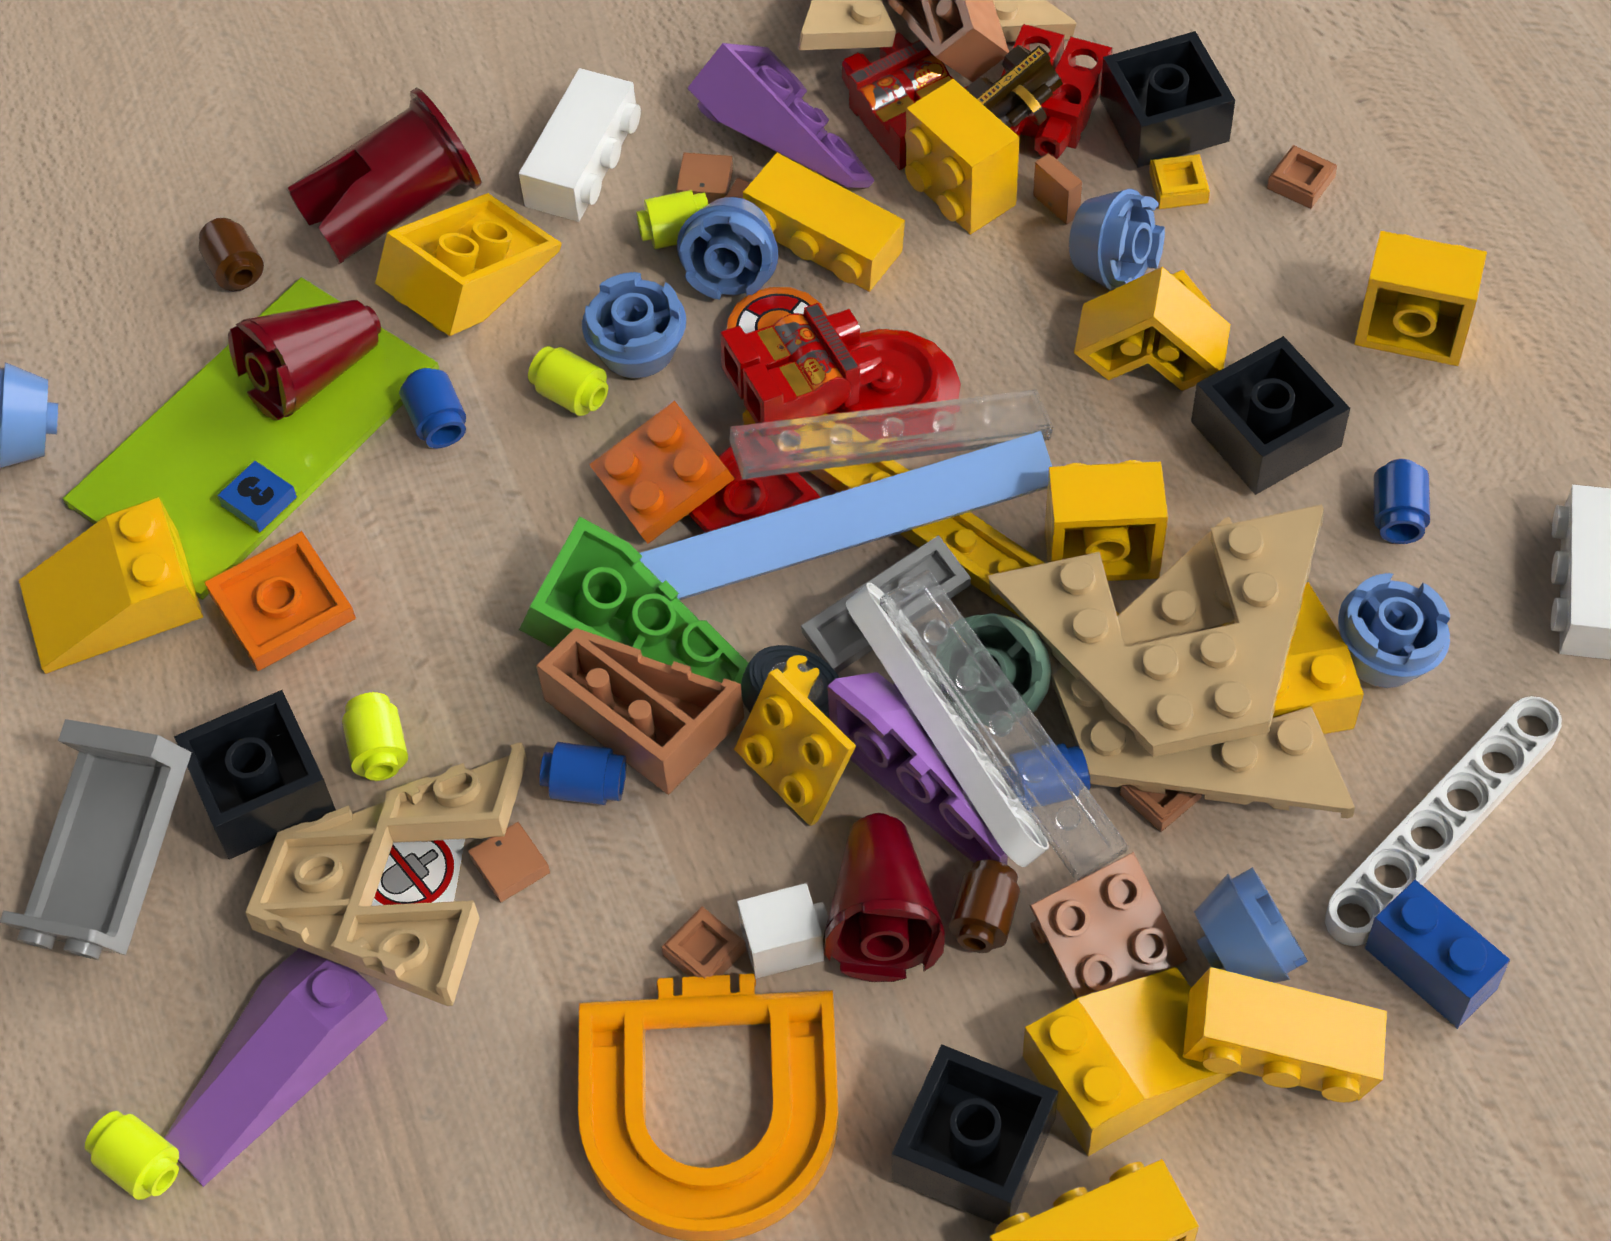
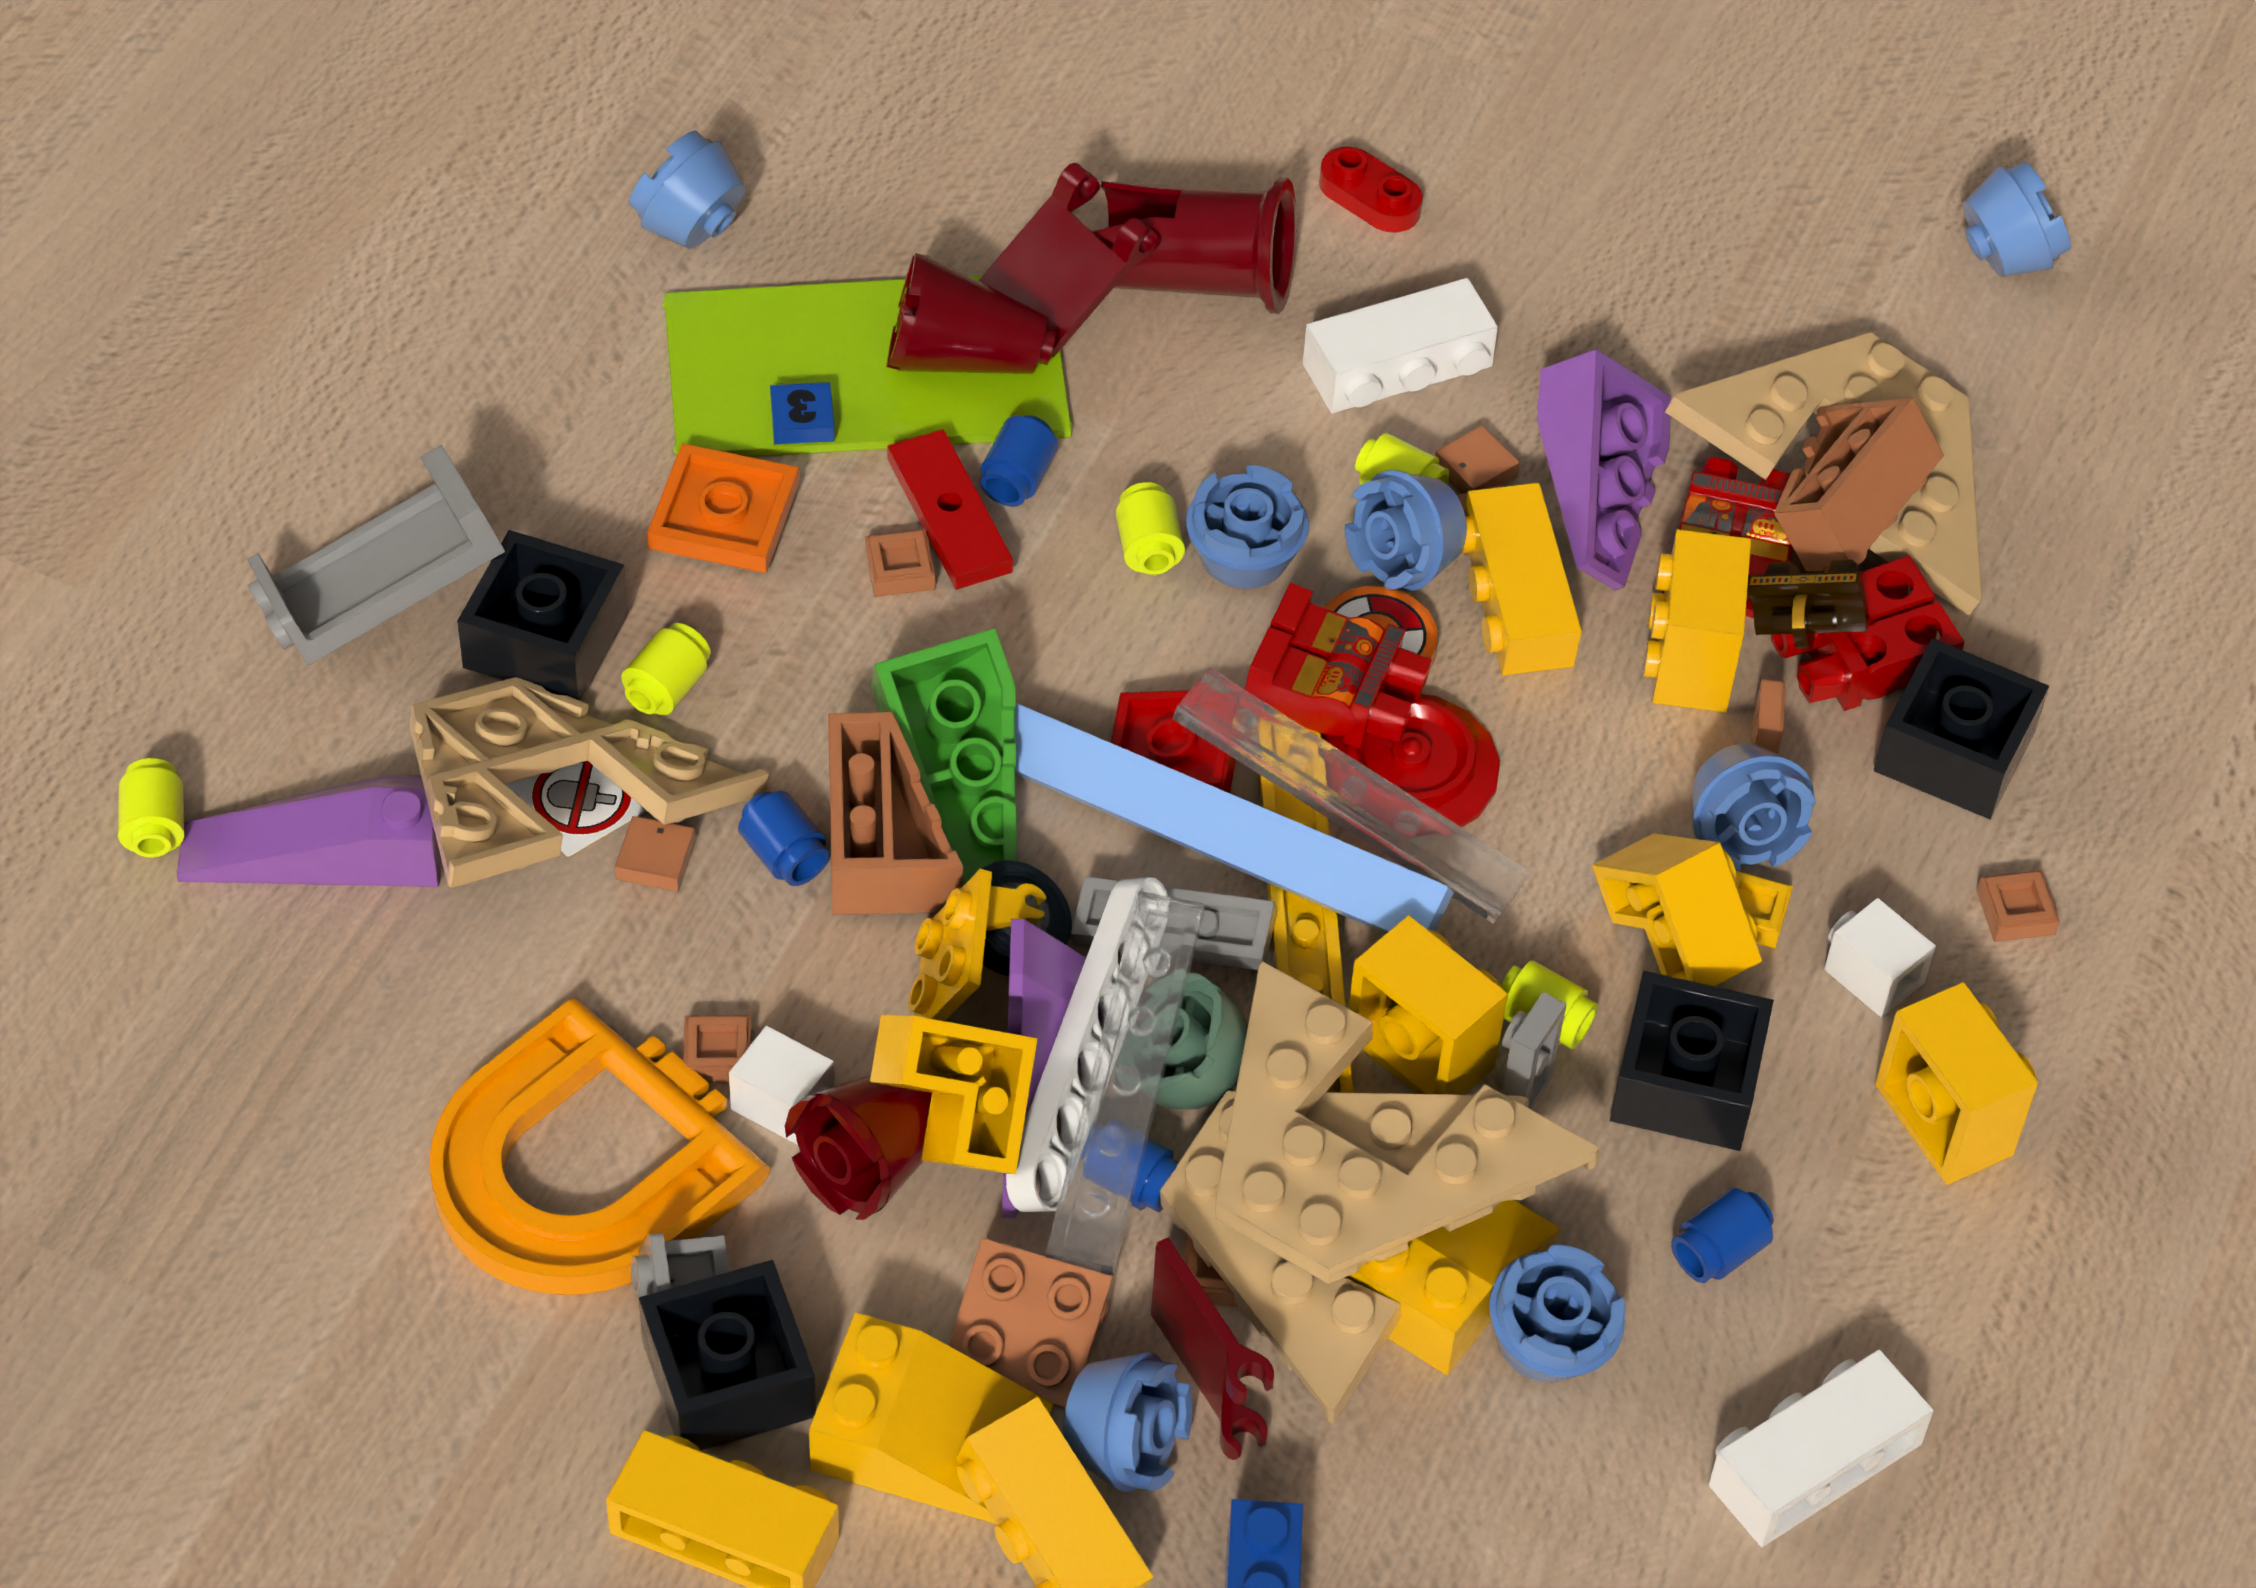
camera: 40 degrees right, 5 degrees down
(110, 587) = (617, 390): yellow slope -> none
(230, 254) = (1009, 202): reddish brown brick -> none
(317, 259) = (1061, 263): none -> dark red flag
(428, 474) = (950, 509): none -> red tile
(433, 537) = (899, 563): none -> nougat tile
(439, 68) = (1370, 189): none -> red plate
(463, 261) = (1186, 363): yellow slope -> none
(661, 472) = (1129, 663): orange plate -> none
(874, 1113) = (676, 1262): none -> light grey bracket
(934, 814) = (975, 1083): none -> yellow brick
(985, 906) = (957, 1214): reddish brown brick -> none
(1152, 446) = (1527, 985): none -> neon yellow brick
(1179, 181) = (1896, 814): yellow tile -> none
(1192, 492) = (1532, 1049): none -> light grey plate
(1239, 839) = (1207, 1348): none -> dark red flag
(1278, 267) = (1878, 956): none -> white brick
(1439, 814) = (1421, 1491): white beam -> none

